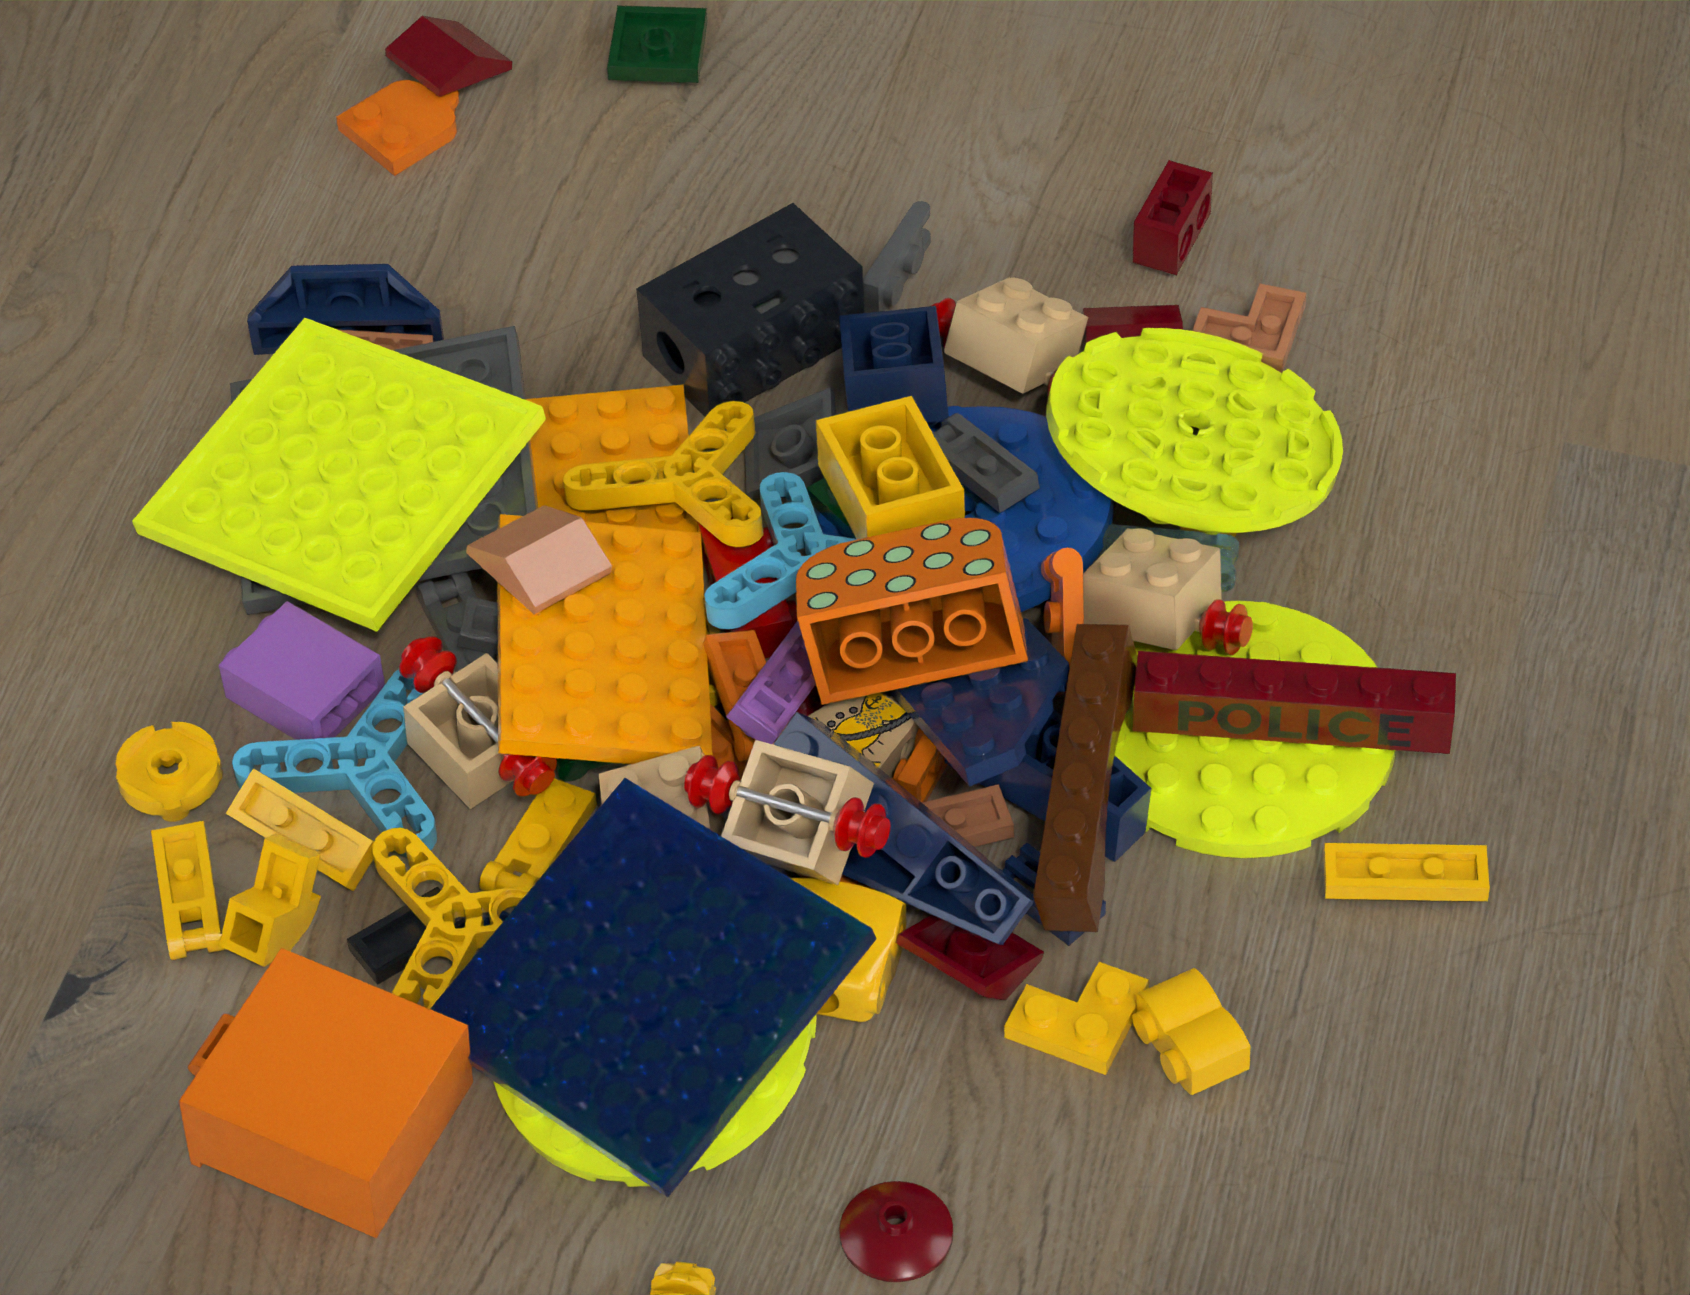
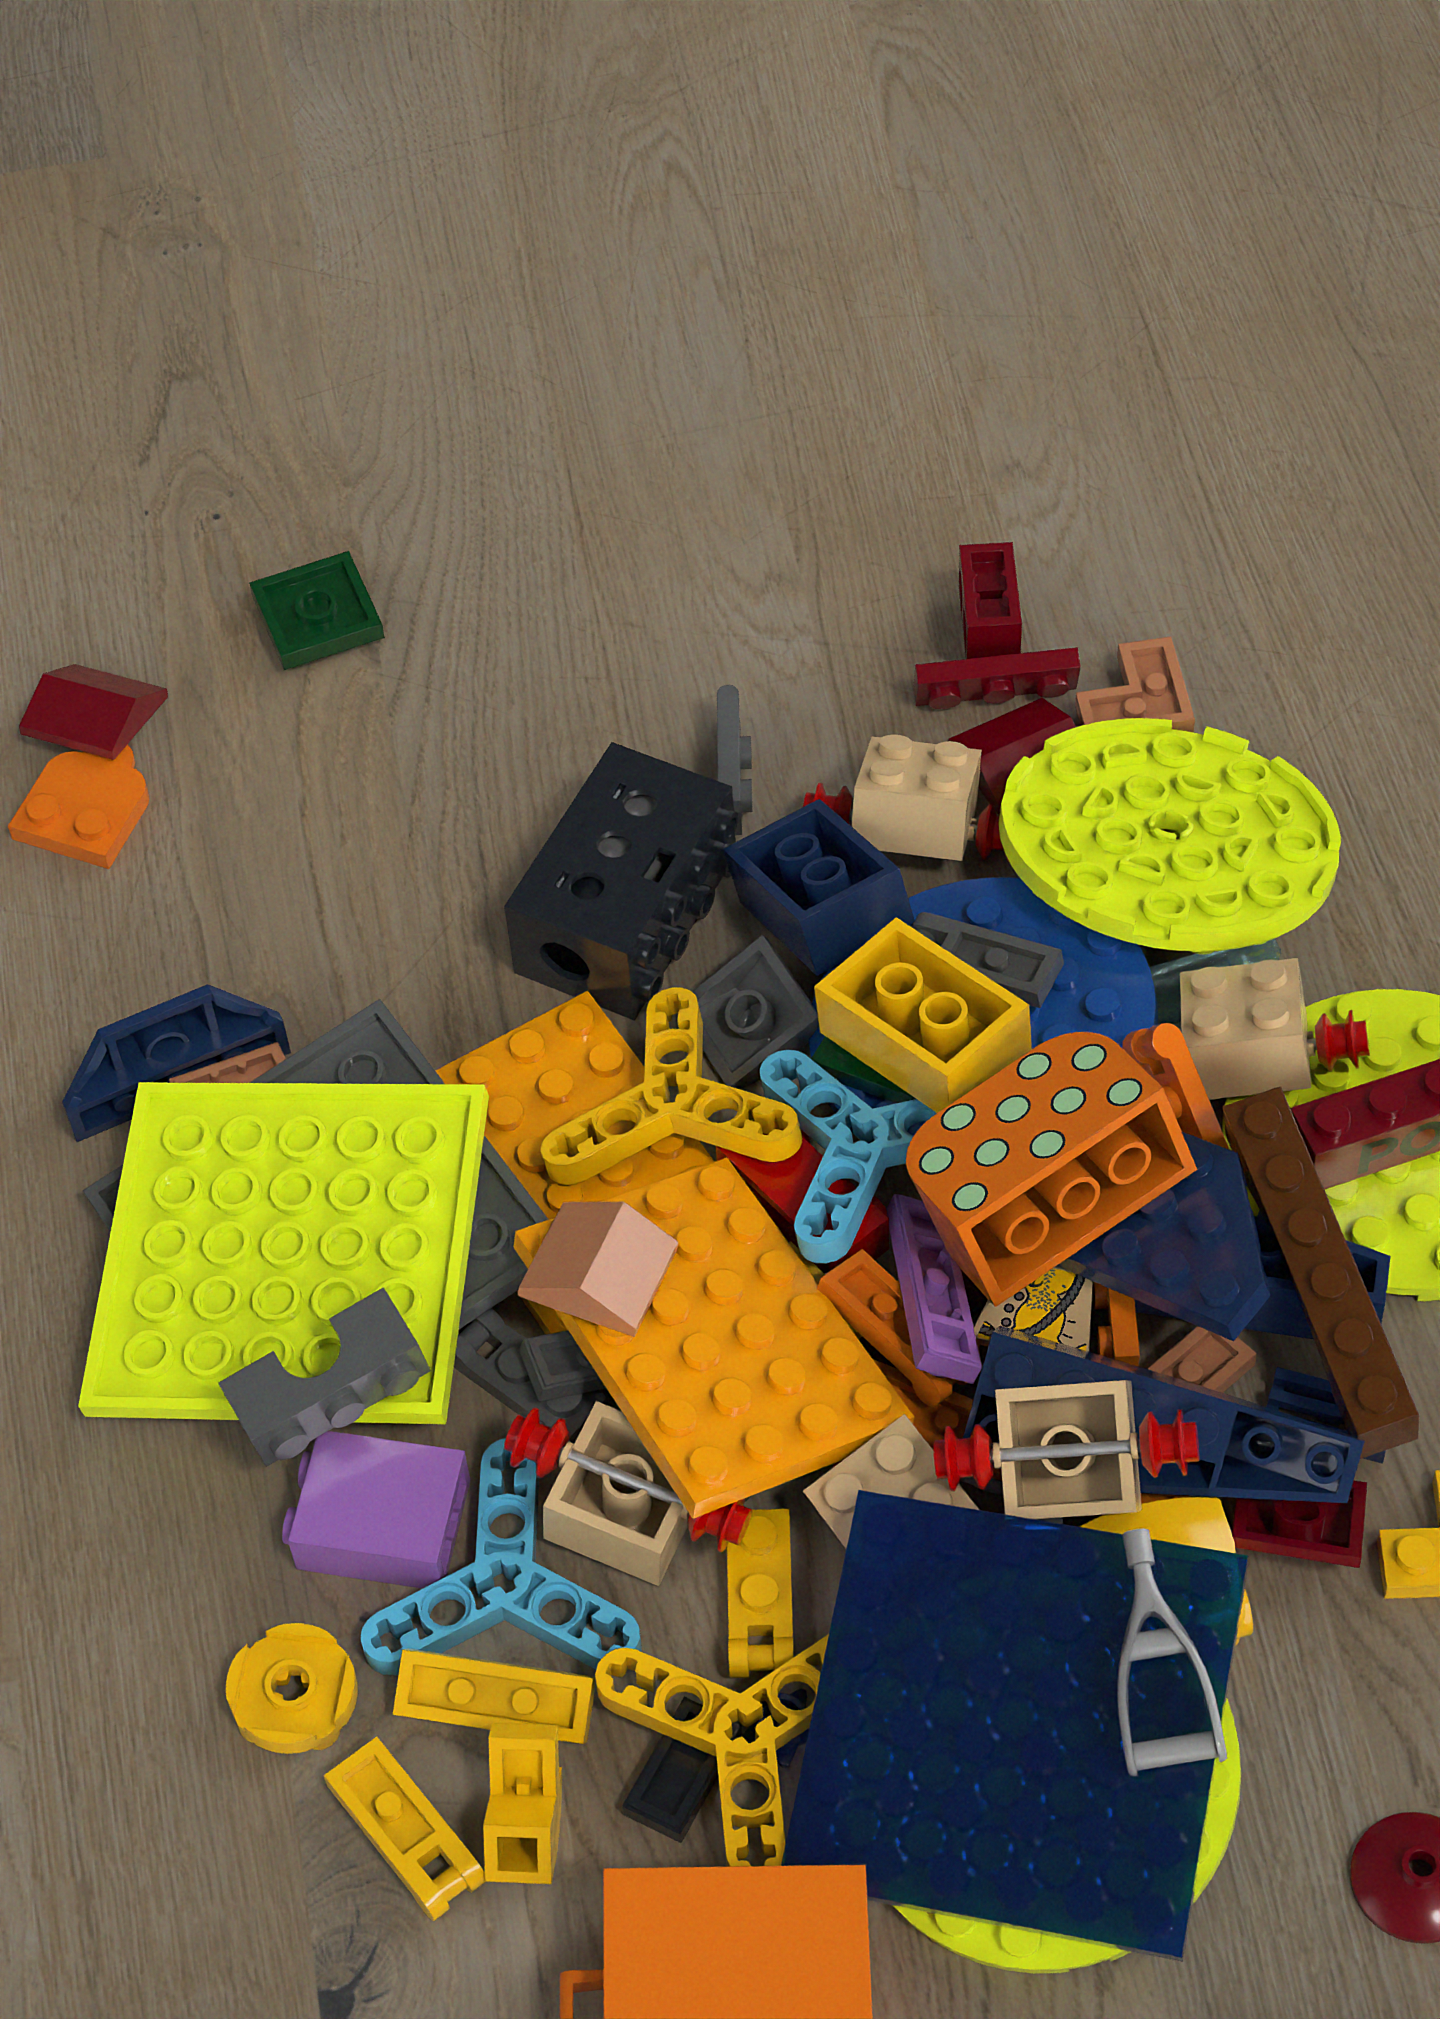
camera: 25 degrees left, 5 degrees up
(341, 560) = (289, 1411): none -> dark grey arch
(752, 954) = (1153, 1644): none -> light grey piece
(1146, 274) = (996, 678): none -> dark red plate

